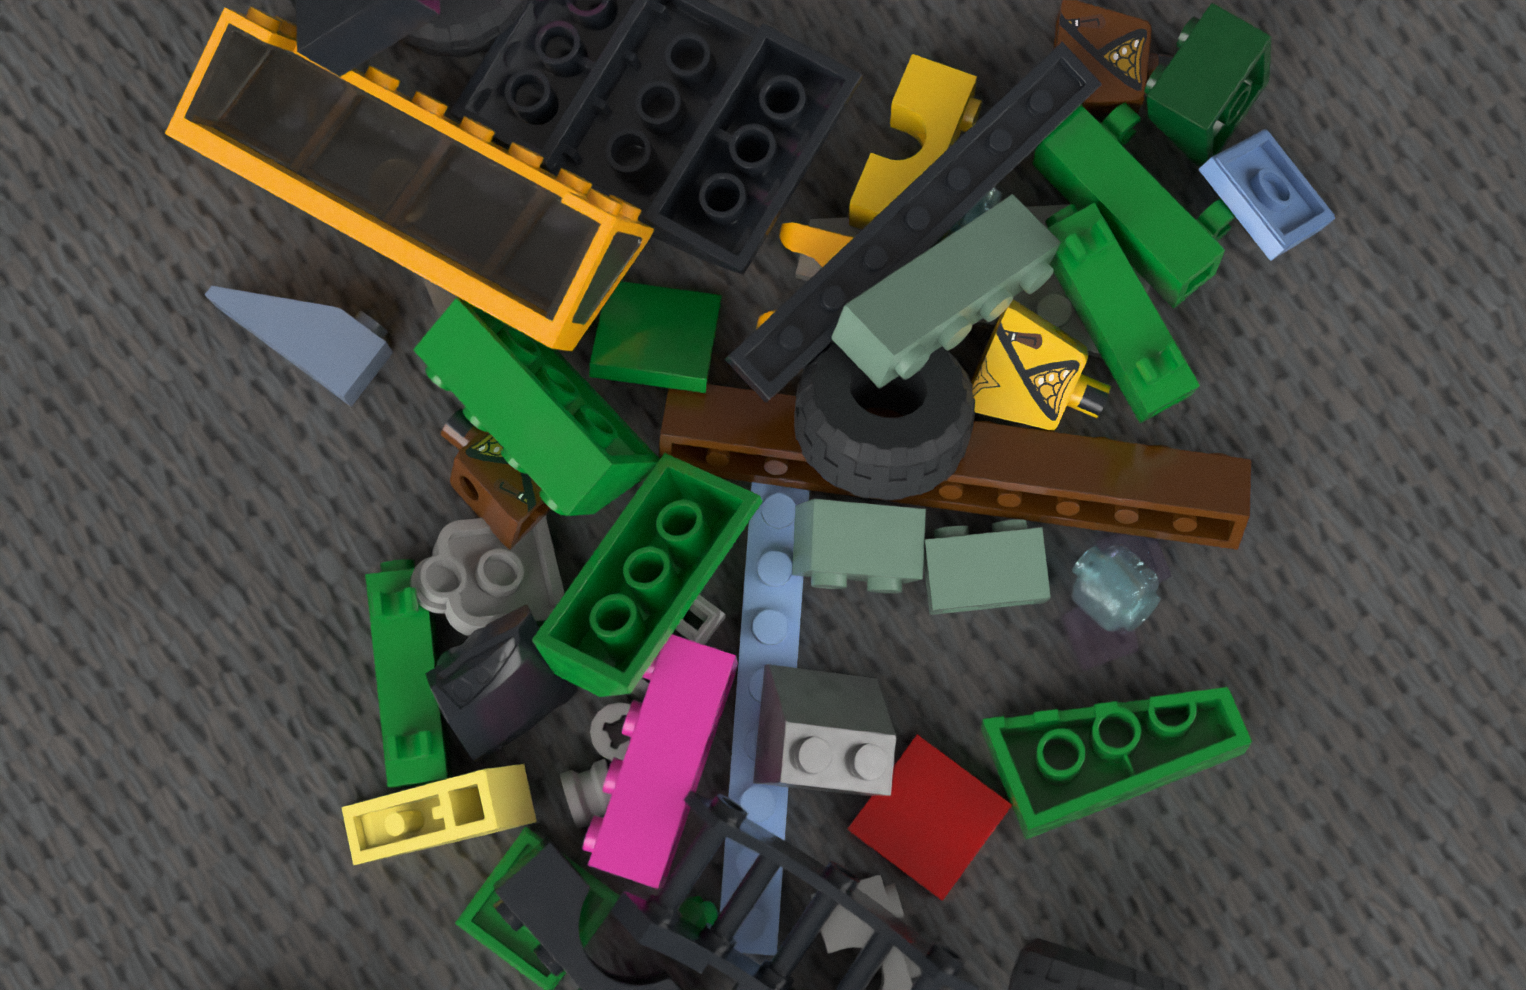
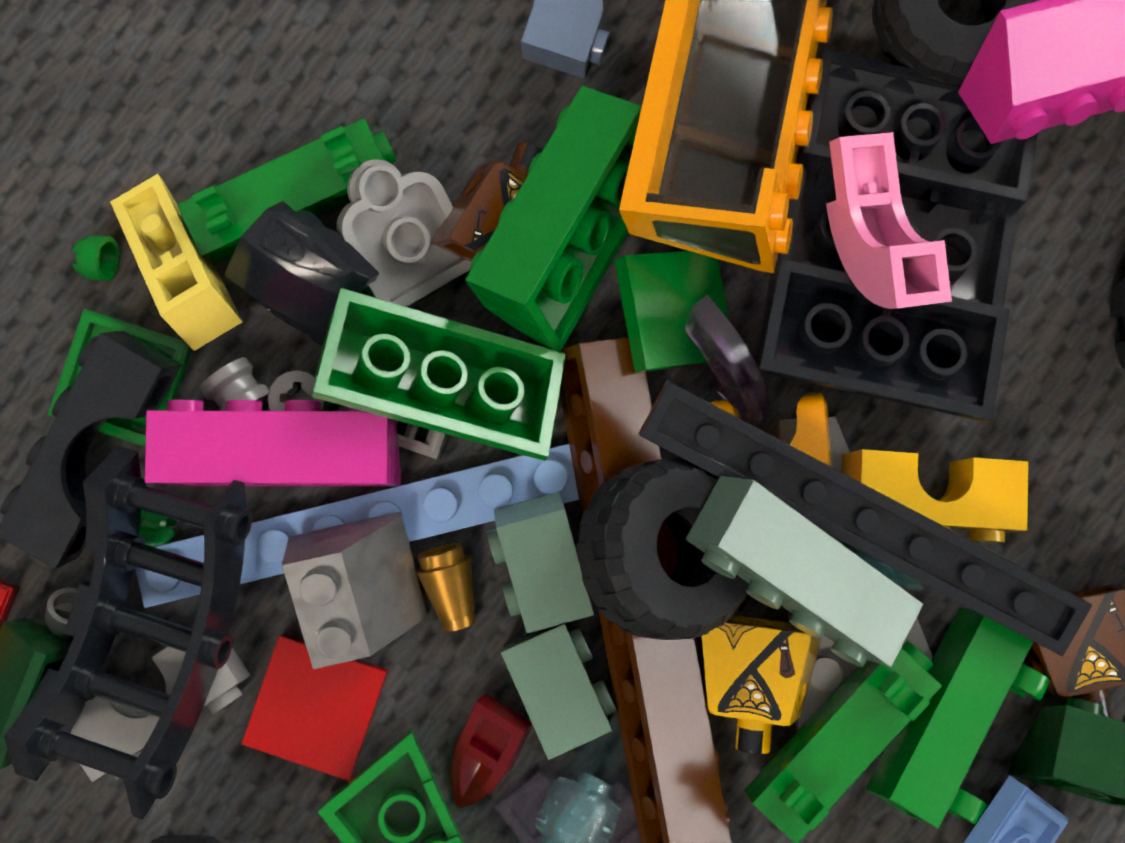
camera: 70 degrees right, 5 degrees up
(408, 893) = (96, 257): none -> green hinge
(647, 123) = (873, 232): none -> bright pink arch
(723, 299) = (729, 360): none -> tile
(851, 645) = (449, 585): none -> pearl gold cone
(1025, 660) = (486, 749): none -> dark red plate

